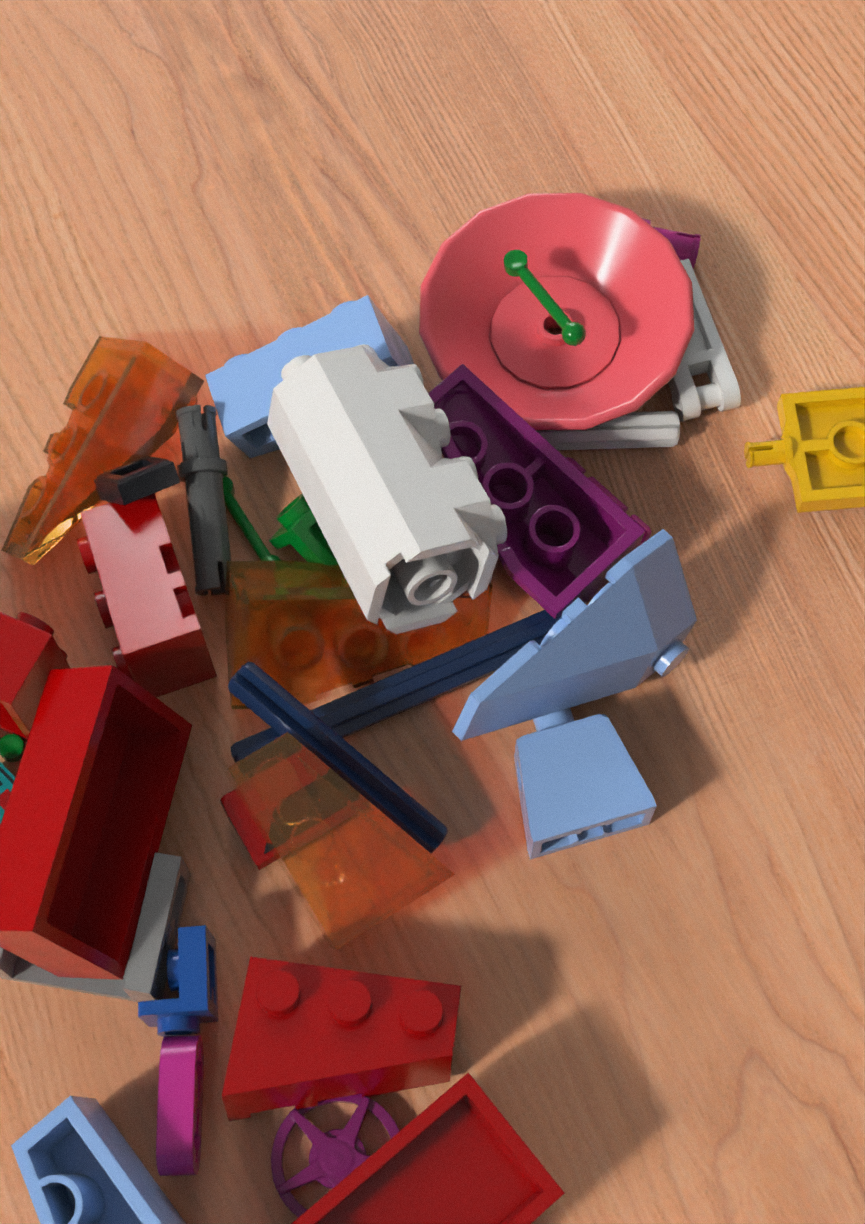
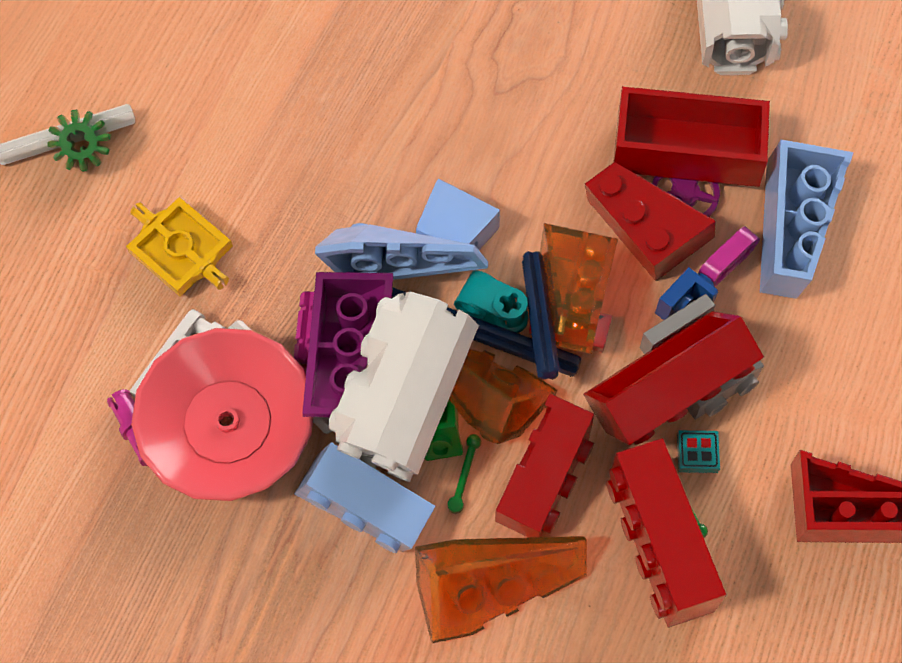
camera: 130 degrees left, 0 degrees up
(136, 480) = (499, 520): black tile -> none
(203, 475) = (462, 503): dark grey pin -> none
(421, 732) = (493, 302): none -> teal piece
(517, 265) = (215, 447): green hinge -> none

